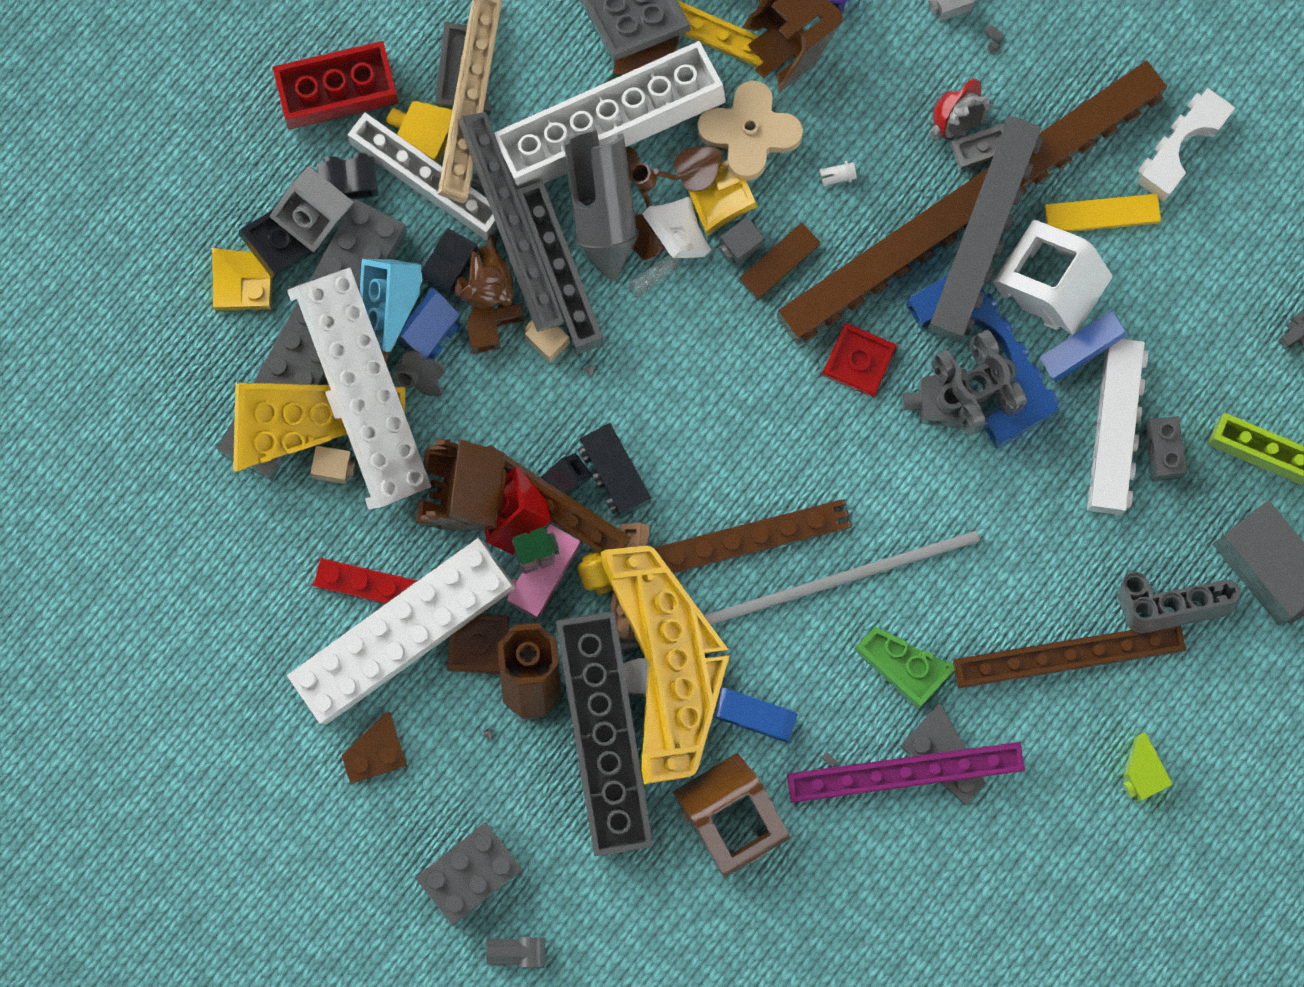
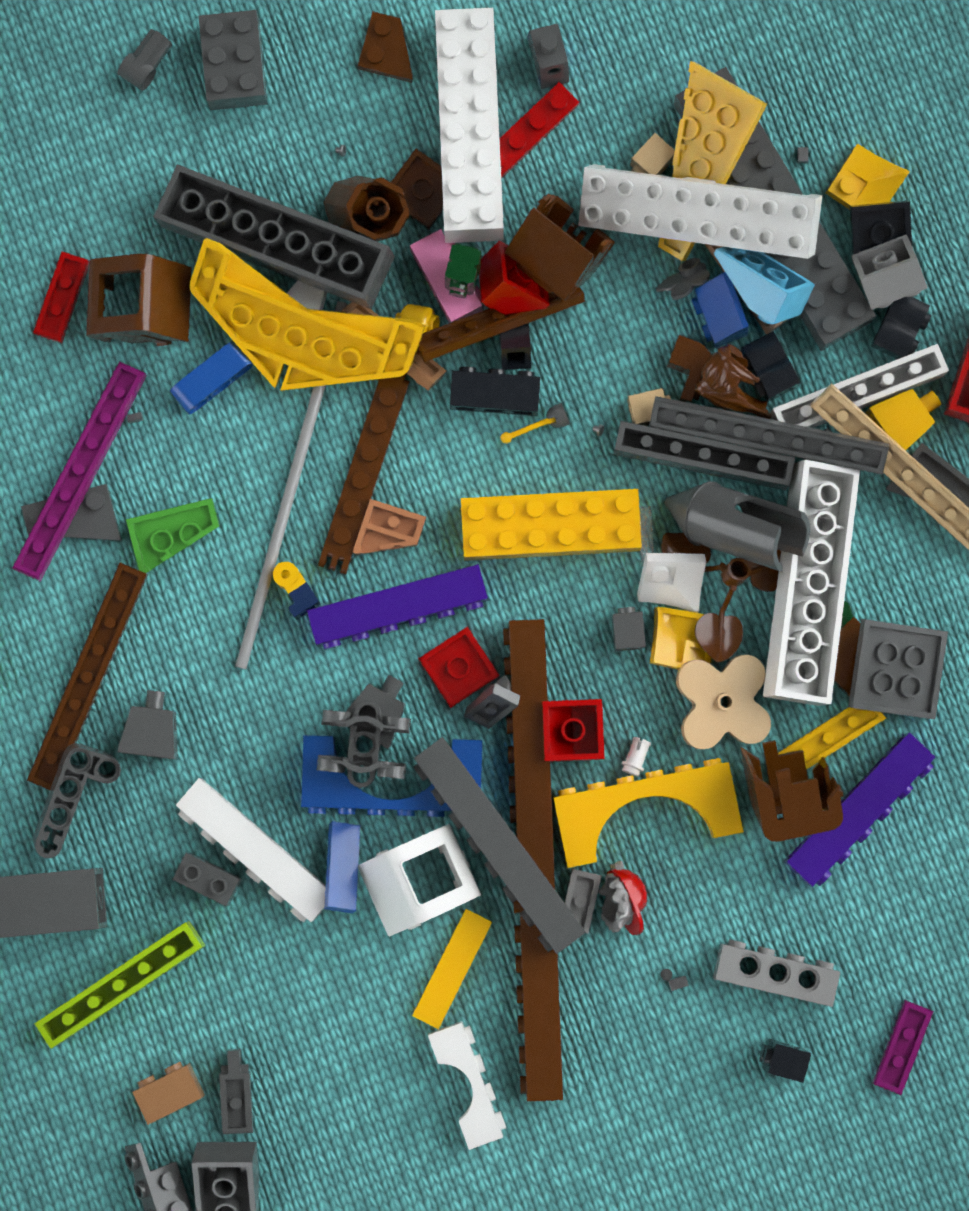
camera: 130 degrees right, 5 degrees up
(249, 347) = (802, 155): none -> flat silver piece
(295, 607) = (549, 53): none -> dark grey torso
(603, 409) = (555, 417): none -> hinge
(695, 356) = (551, 524): none -> yellow brick
(767, 889) = (61, 297): none -> red tile
(779, 261) = (590, 654): reddish brown tile -> none
(784, 487) = (388, 529): none -> nougat wing
(843, 437) = (397, 606): none -> dark purple brick
(851, 230) = (573, 730): none -> red slope
(873, 309) = (493, 703): none -> dark grey tile
(878, 541) = (290, 579): none -> leg
(907, 183) = (704, 789): none -> yellow arch
(1078, 573) = (150, 729): none -> dark grey torso

